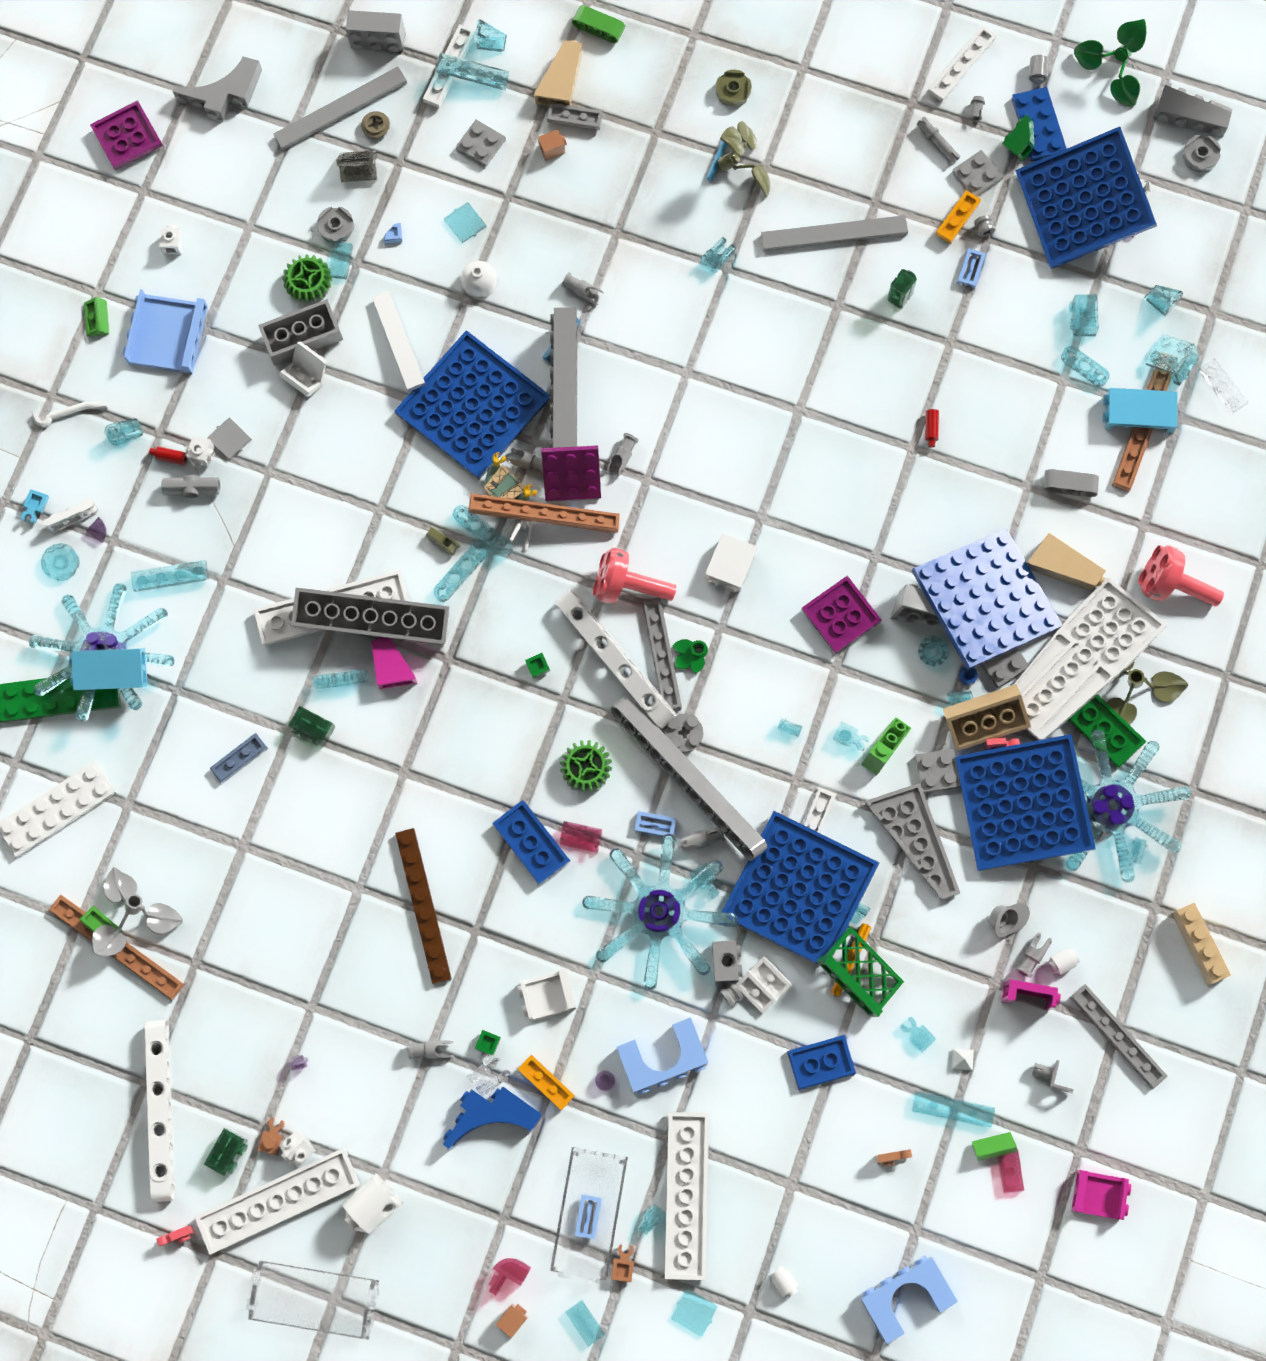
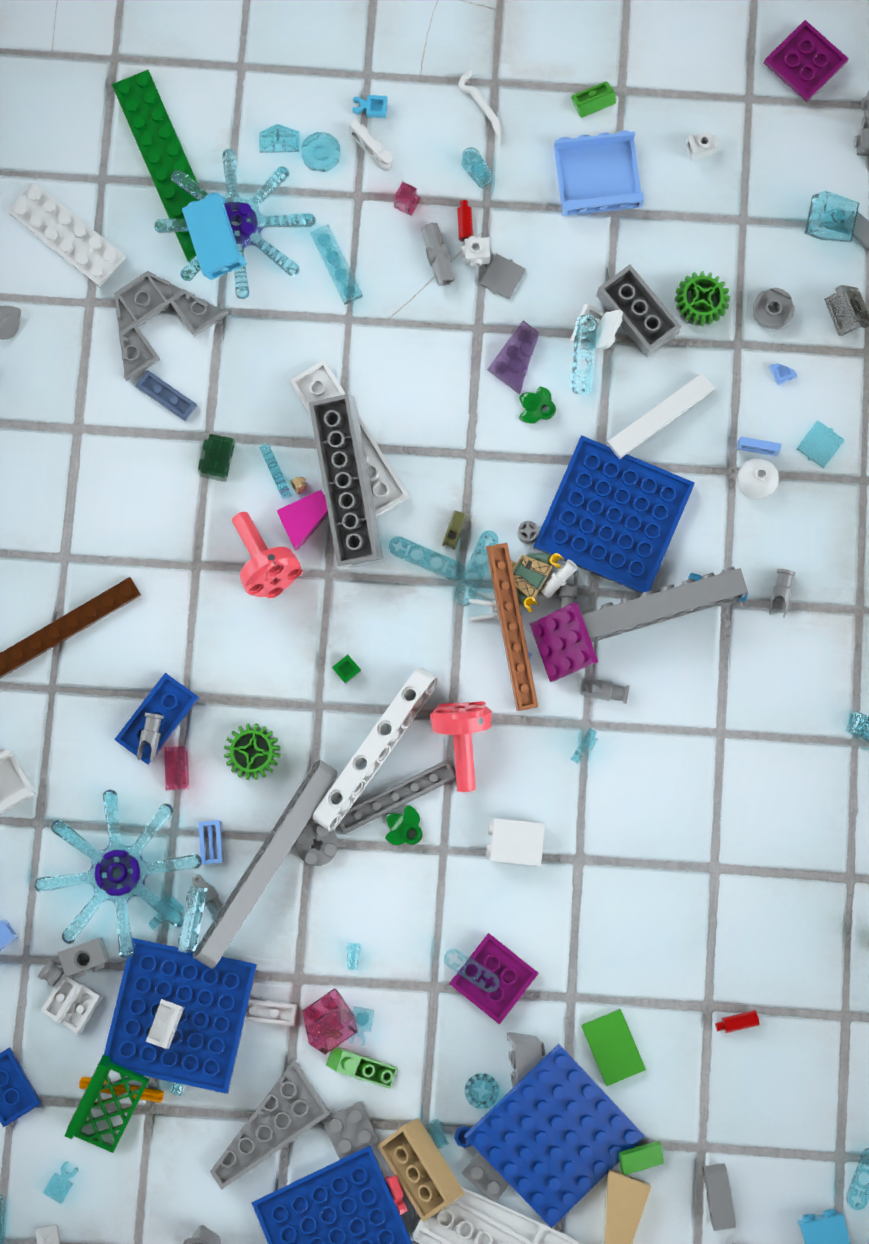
camera: 70 degrees right, 5 degrees up
(35, 595) = (279, 139): none -> clear light blue slope
(98, 530) = (365, 178): clear purple tile -> none
(131, 498) = (406, 198): none -> clear pink brick
(144, 755) = (144, 300): none -> light grey wing
(272, 154) = (831, 217): none -> clear light blue slope
(307, 449) = (514, 358): none -> clear purple wing
(322, 390) = (587, 355): none -> clear light blue beam
(340, 260) = (735, 326): clear light blue tile -> none
(353, 443) = (534, 404): none -> green plate
(359, 662) = (298, 484): none -> tan hinge
(429, 703) = (268, 569): none -> coral piece
(451, 270) = (758, 446): none -> light blue tile
(464, 475) = (528, 528): none -> light grey wheel
(514, 462) = (559, 578): none -> white pin
(543, 847) = (150, 735): none -> light grey piece
(662, 482) = (587, 742): none -> clear light blue plate
(719, 853) = (192, 919): none -> clear light blue plate
(804, 900) = (165, 1024): none -> white hinge
(822, 642) = (481, 984): none -> clear light blue beam
(840, 761) = (329, 1022): none -> clear pink slope
(925, 533) = (613, 1047): none -> bright green tile
(1023, 535) = (641, 1158): none -> bright green tile

